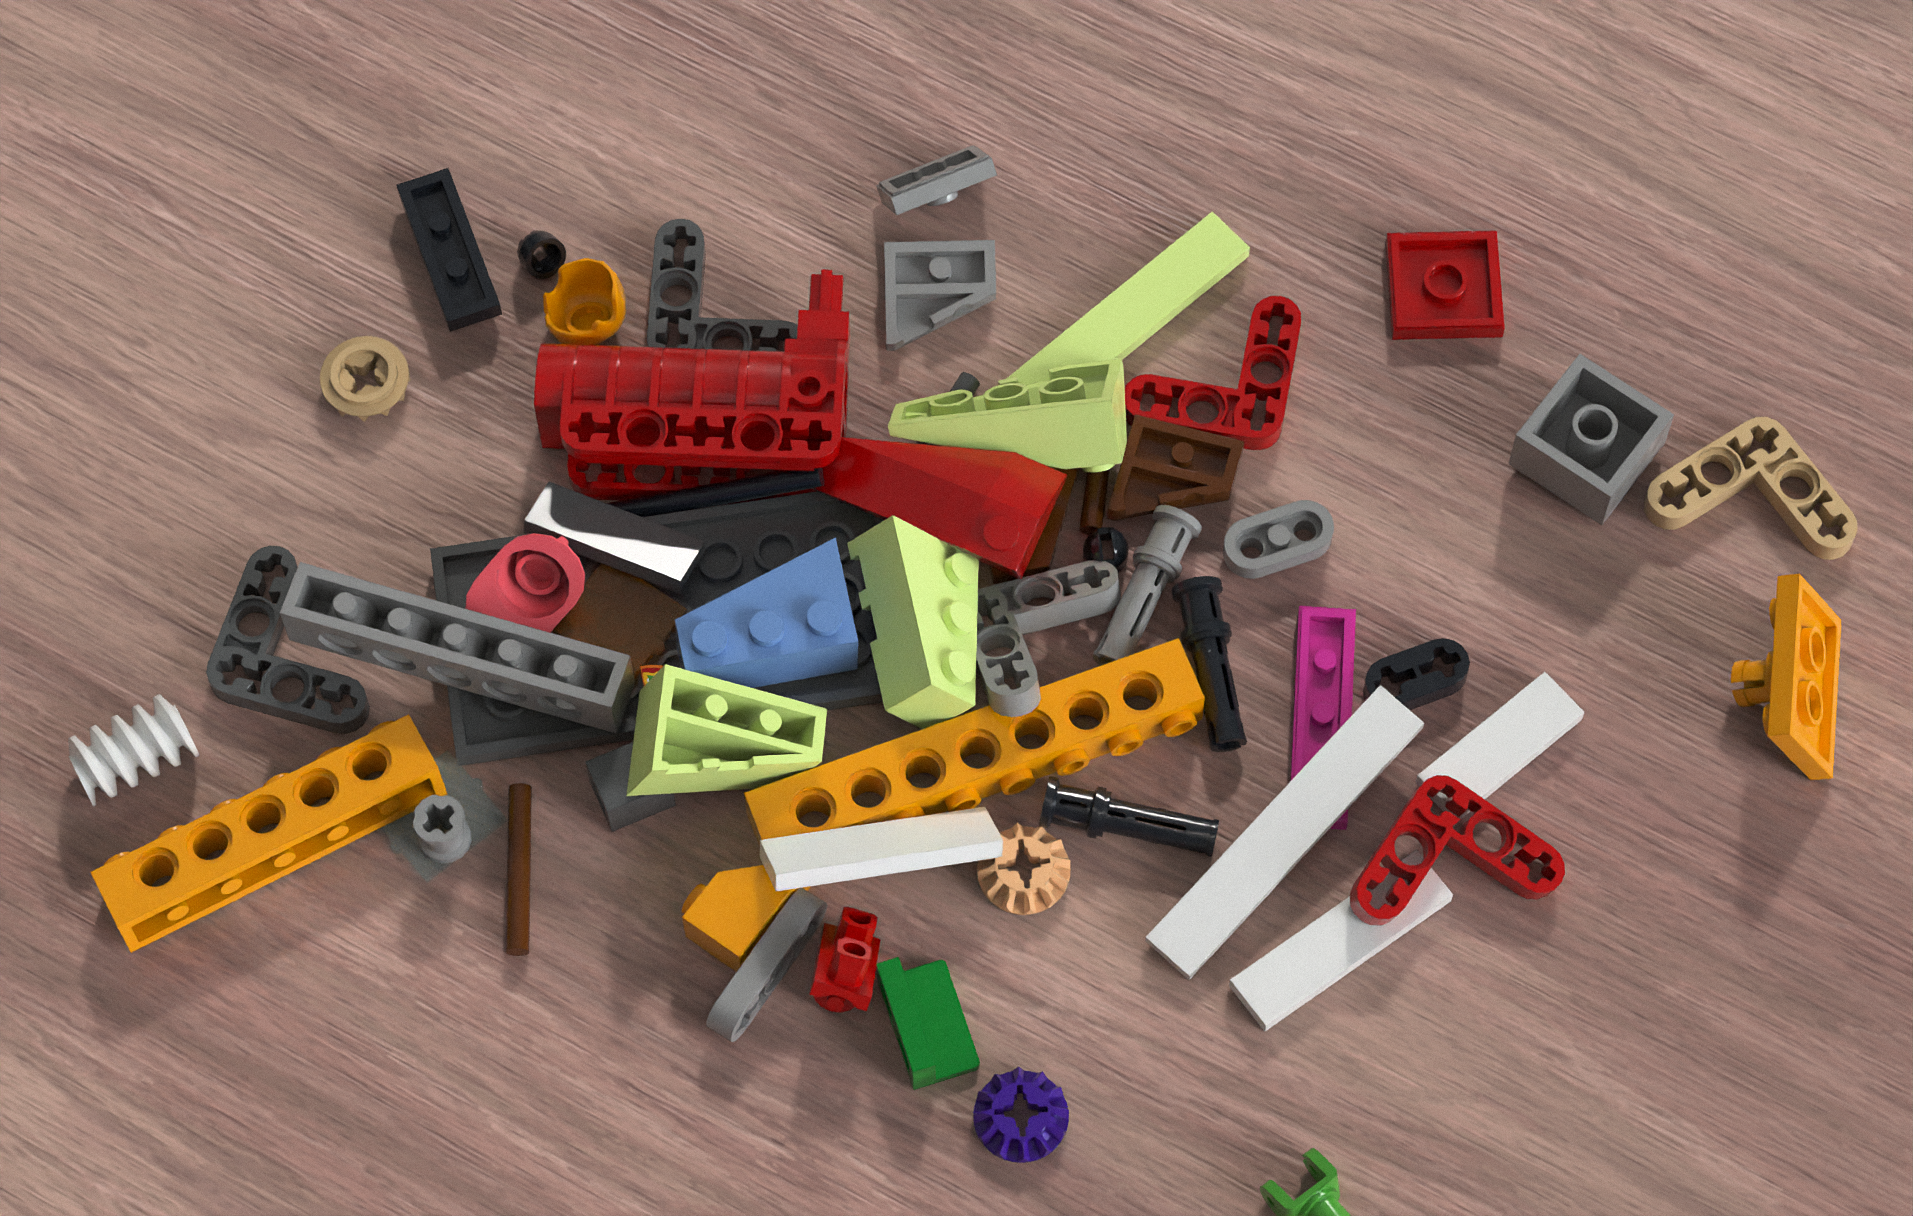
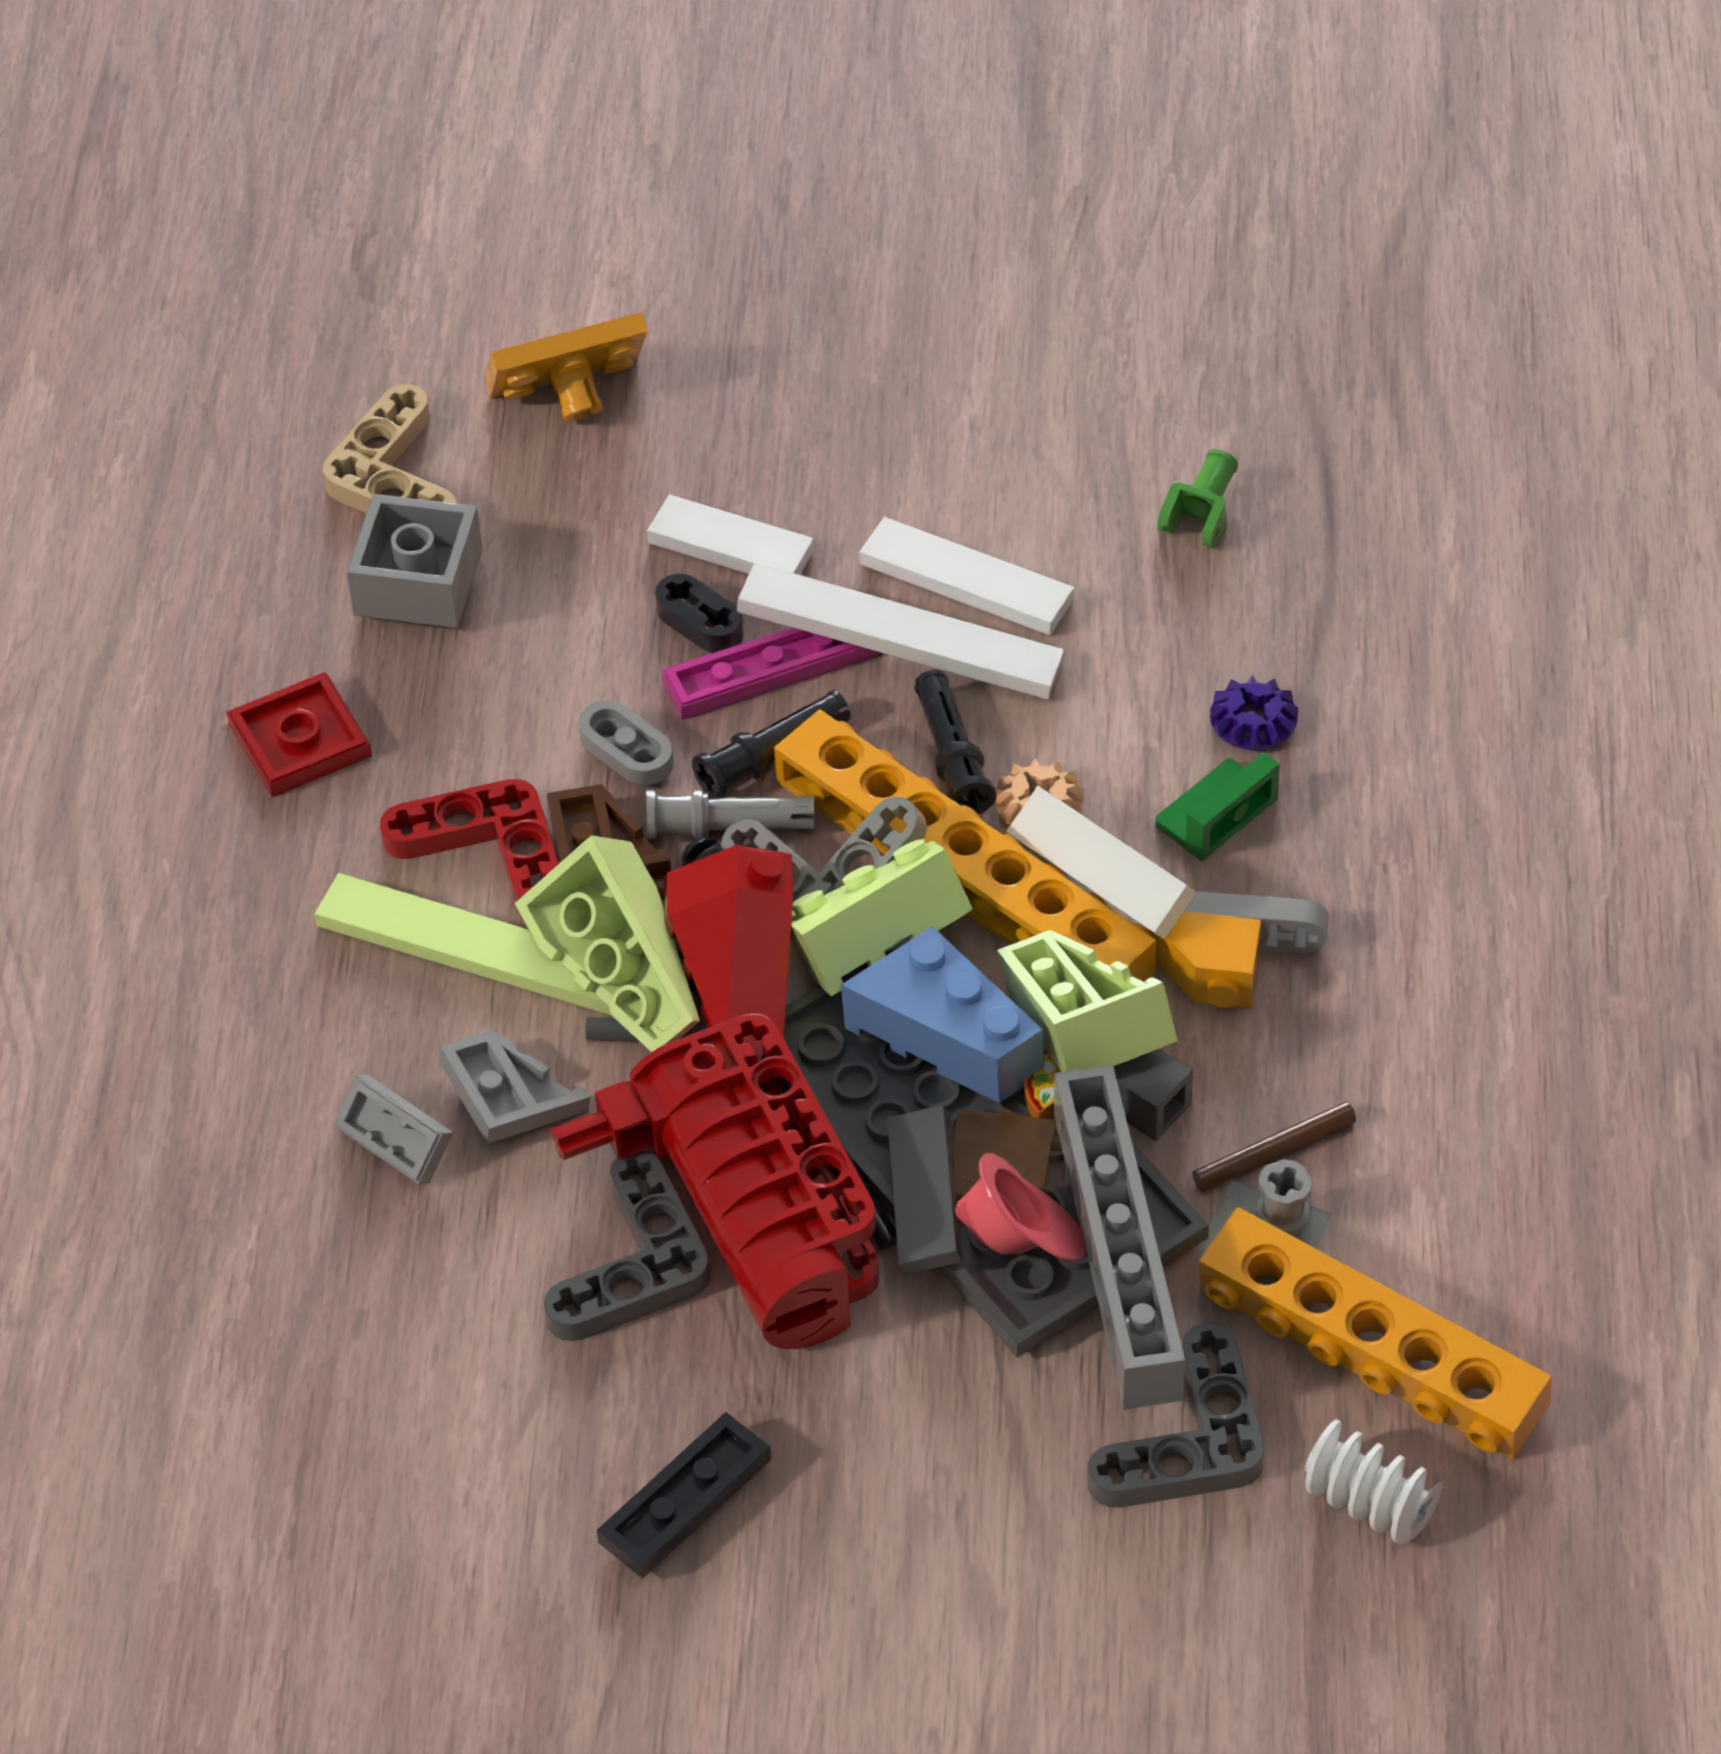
camera: 115 degrees left, 15 degrees down
(359, 357) = (842, 1489): tan gear -> none
(550, 246) = (645, 1414): black hinge -> none
(585, 303) = (688, 1338): light orange hair -> none
(846, 962) = (1220, 853): red hips -> none
(1435, 833) = (901, 542): red beam -> none

